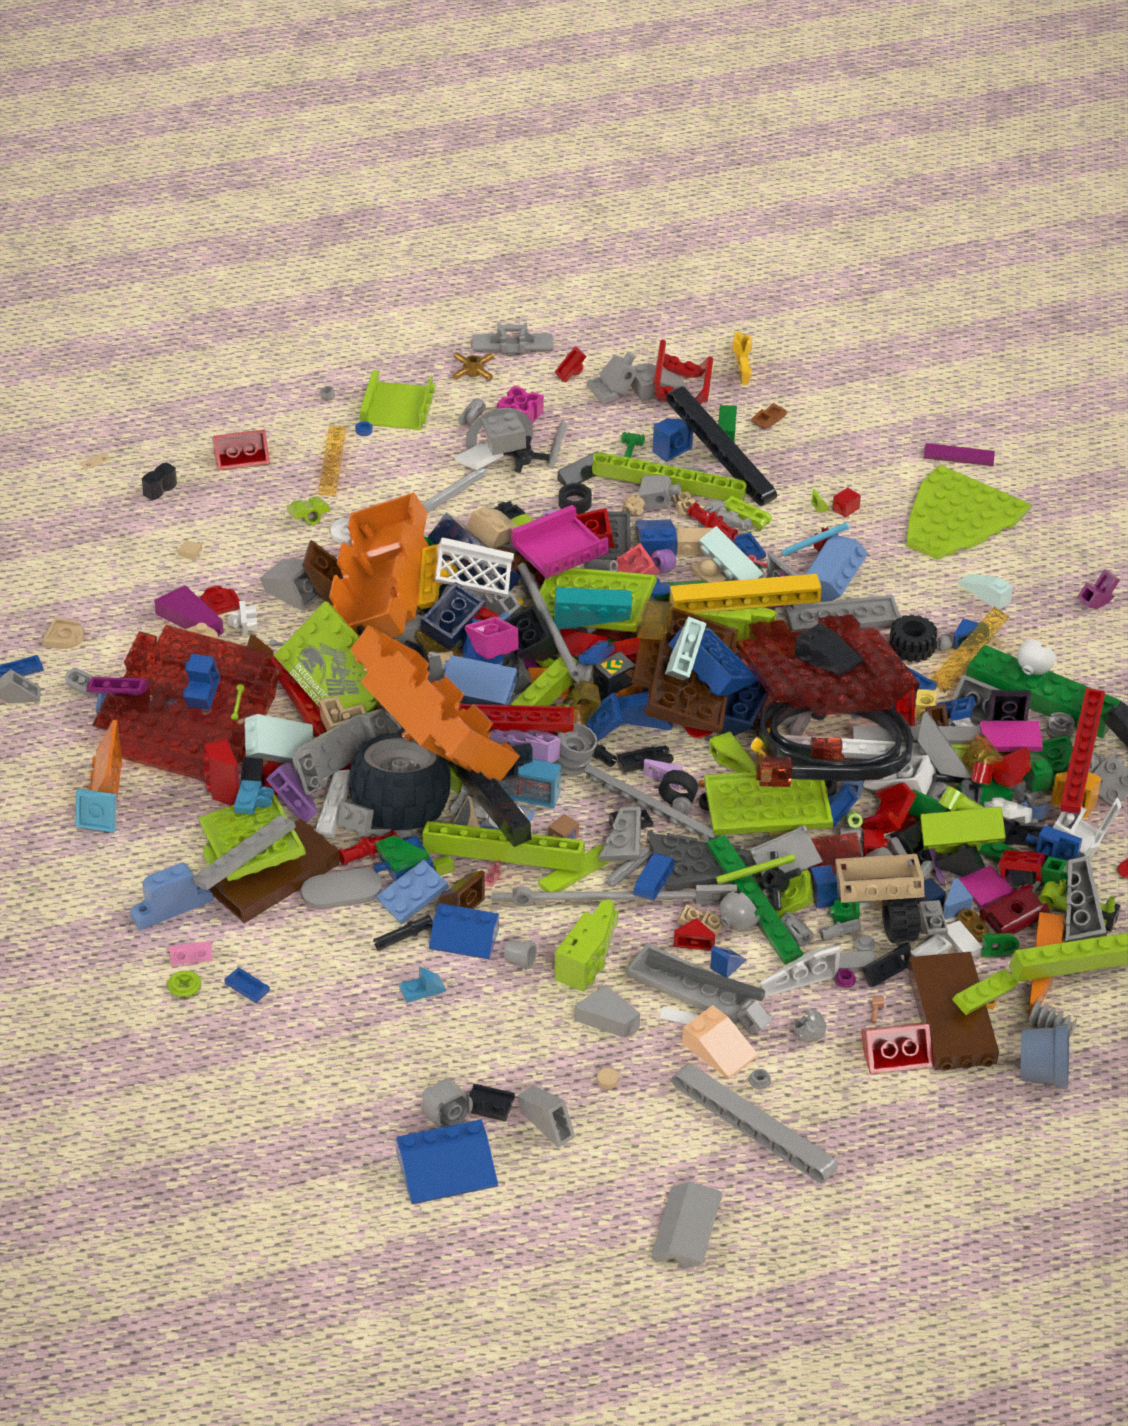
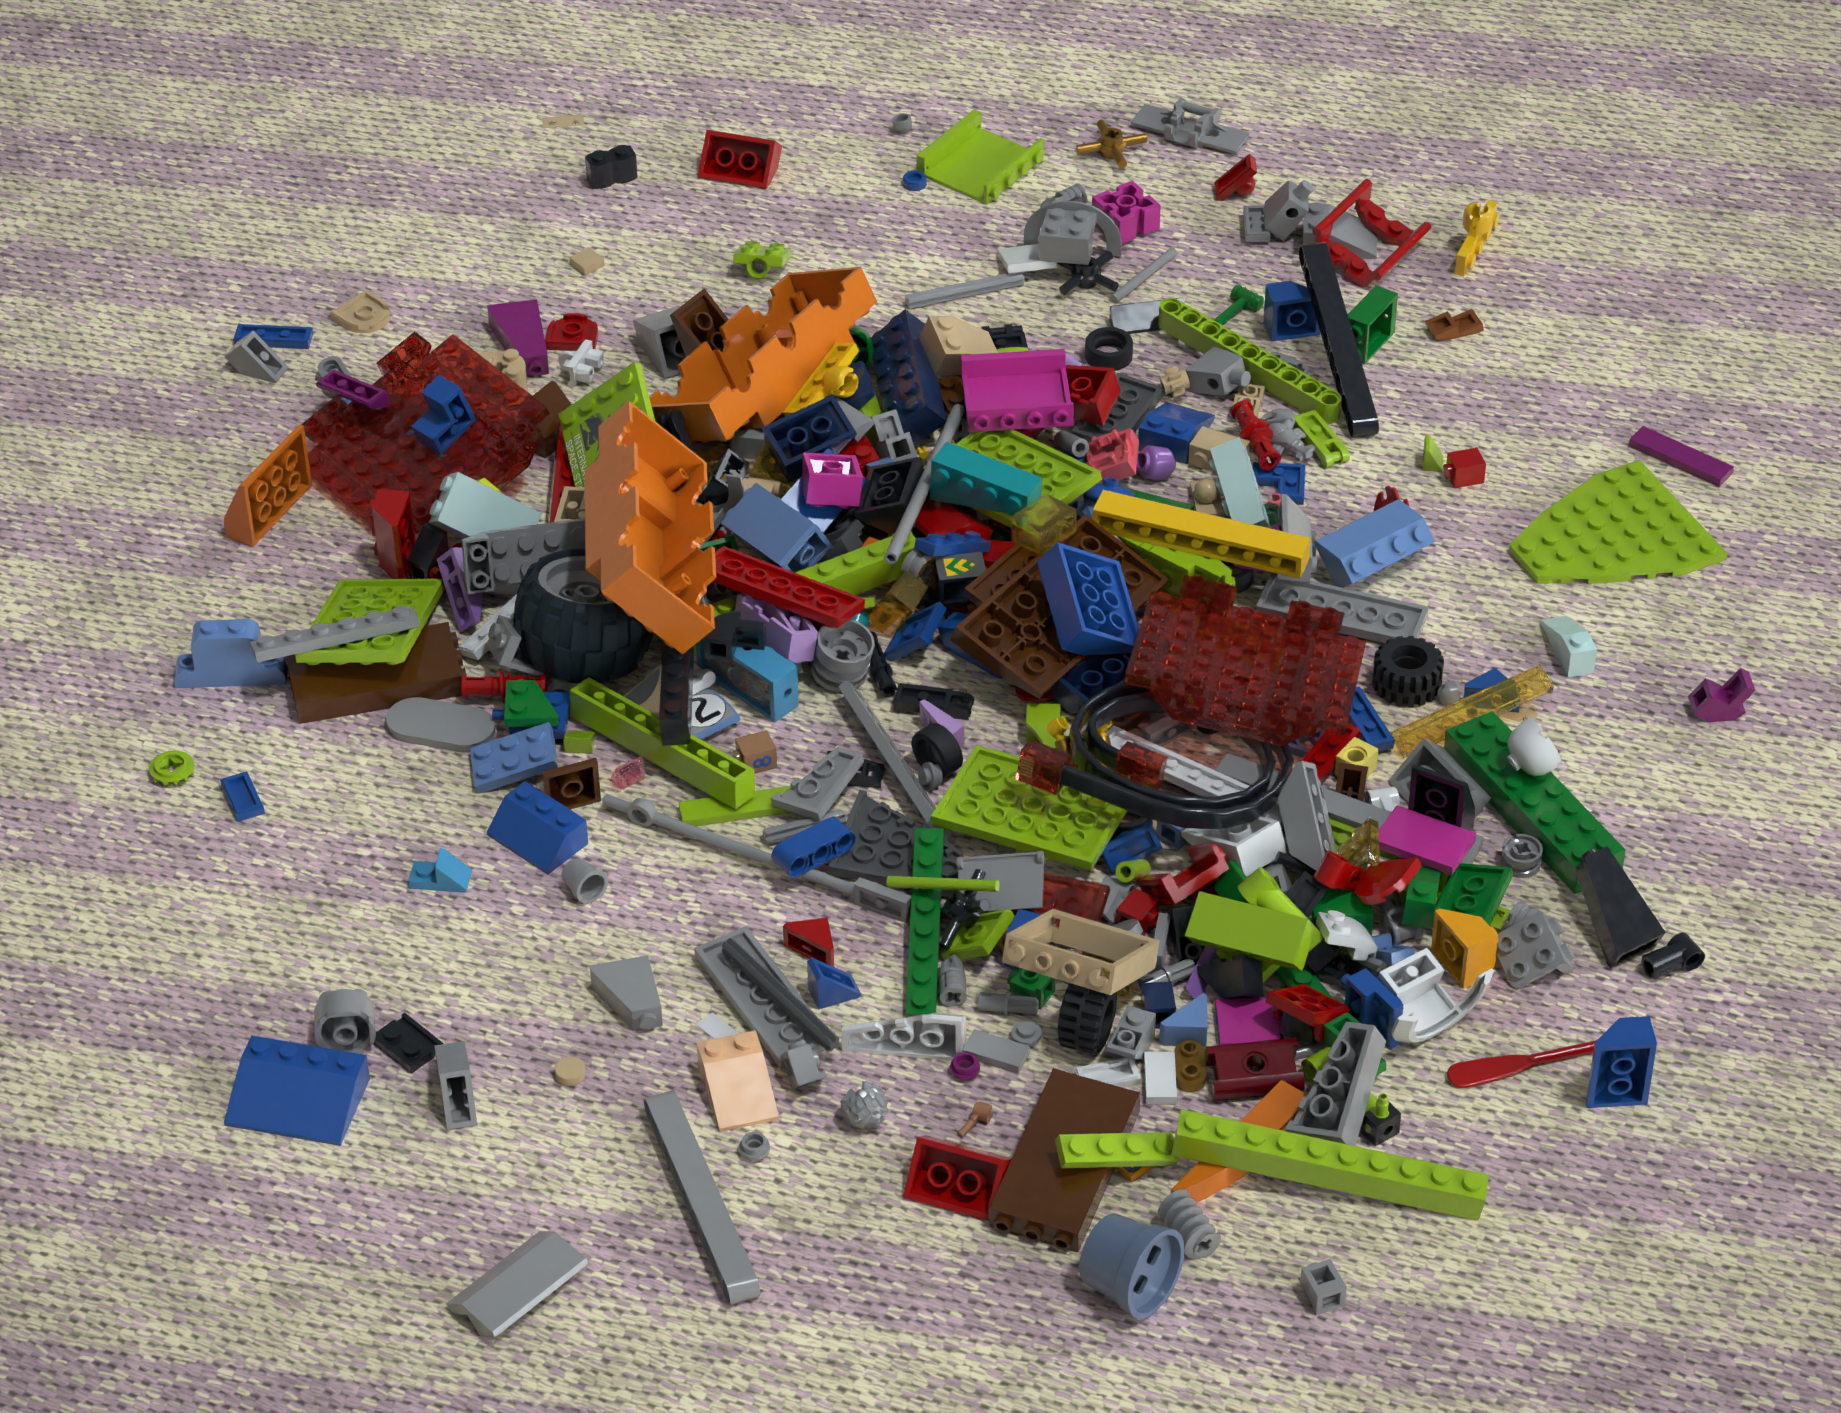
camera: 30 degrees right, 0 degrees up
(96, 810) = (224, 528): medium azure tile -> none
(191, 953) = (207, 734): bright pink hinge -> none
(240, 688) = (488, 440): lime hinge -> none
(252, 795) = (406, 573): dark azure hinge -> none
(332, 461) = (844, 208): clear yellow tile -> none
(411, 929) = (463, 803): black pin -> none
(475, 555) = (880, 366): white fence -> none
(586, 947) = (664, 899): lime piece -> none
(686, 649) = (1043, 571): light aqua slope -> none
(709, 919) = (845, 930): tan slope -> none
(737, 911) = (883, 931): light grey cylinder -> none
(812, 540) = (1373, 499): medium azure bar -> none
(826, 650) = (1254, 642): black slope -> none
(887, 965) = (1028, 1070): black plate -> none
(960, 708) = (1387, 781): blue tile -> none
(1006, 944) = (1209, 1100): green plate -> none
(1082, 751) = (1495, 891): red plate -> none

